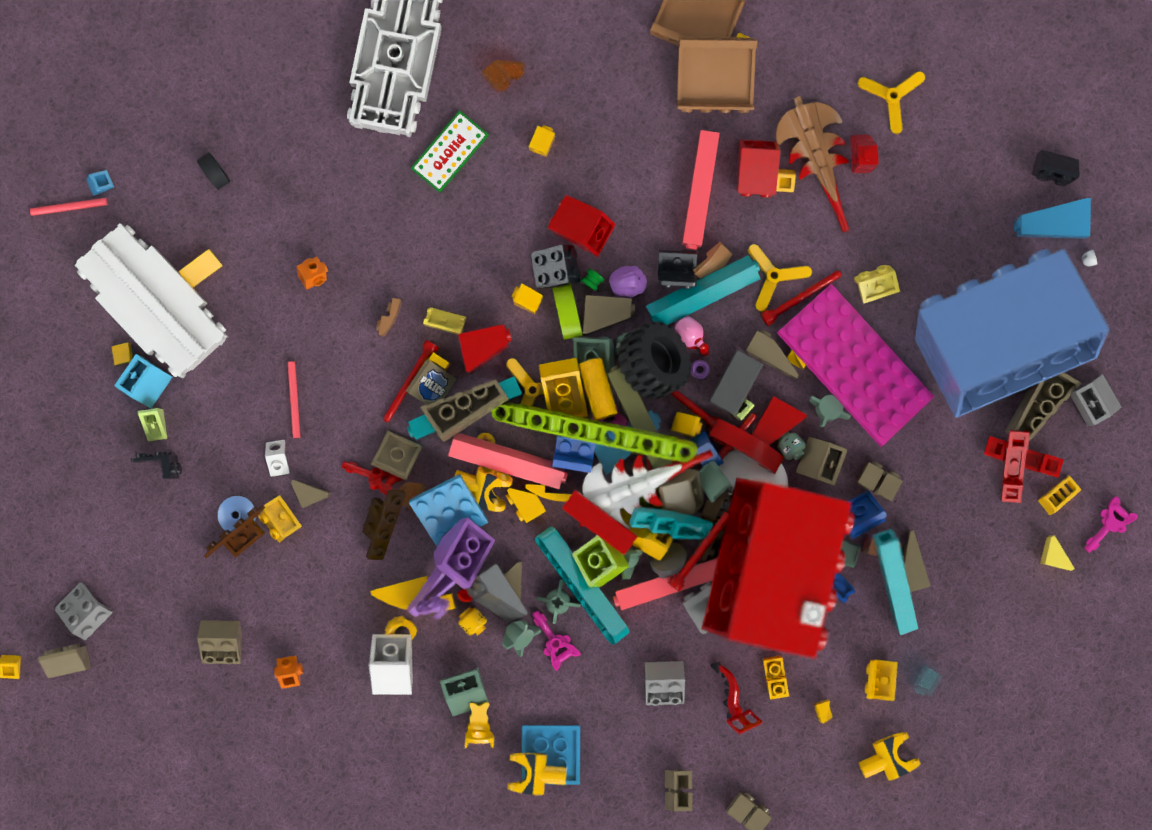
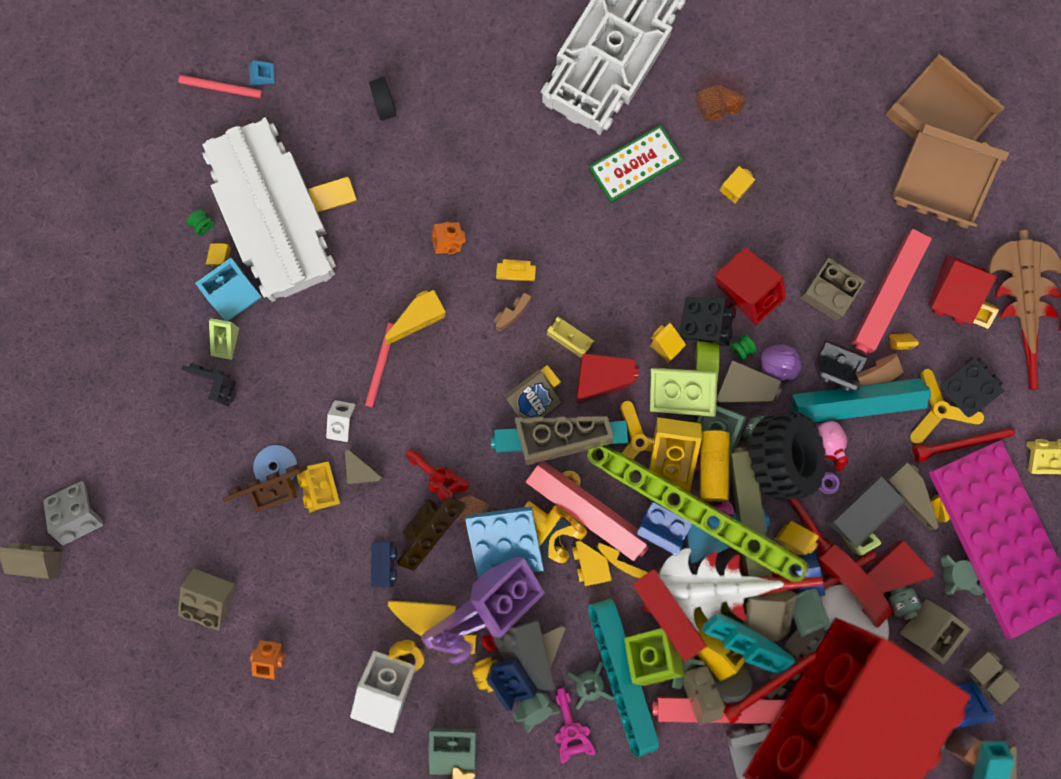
camera: 20 degrees right, 5 degrees down
(96, 331) = (200, 222): none -> green wheel
(312, 344) = (420, 313): none -> yellow slope
(355, 563) = (382, 564): none -> dark blue bracket
(379, 280) = (516, 270): none -> yellow piece
(397, 455) = (469, 462): dark tan tile -> none
(428, 349) = (541, 361): red piece -> none
(491, 621) = (509, 682): none -> dark blue bracket
(553, 335) = (683, 391): none -> yellowish green tile
(650, 205) = (832, 289): none -> dark tan slope
(652, 580) = (707, 703): none -> dark tan piece
(724, 228) = (902, 341): none -> yellow slope
(792, 247) = (972, 387): none -> black bracket

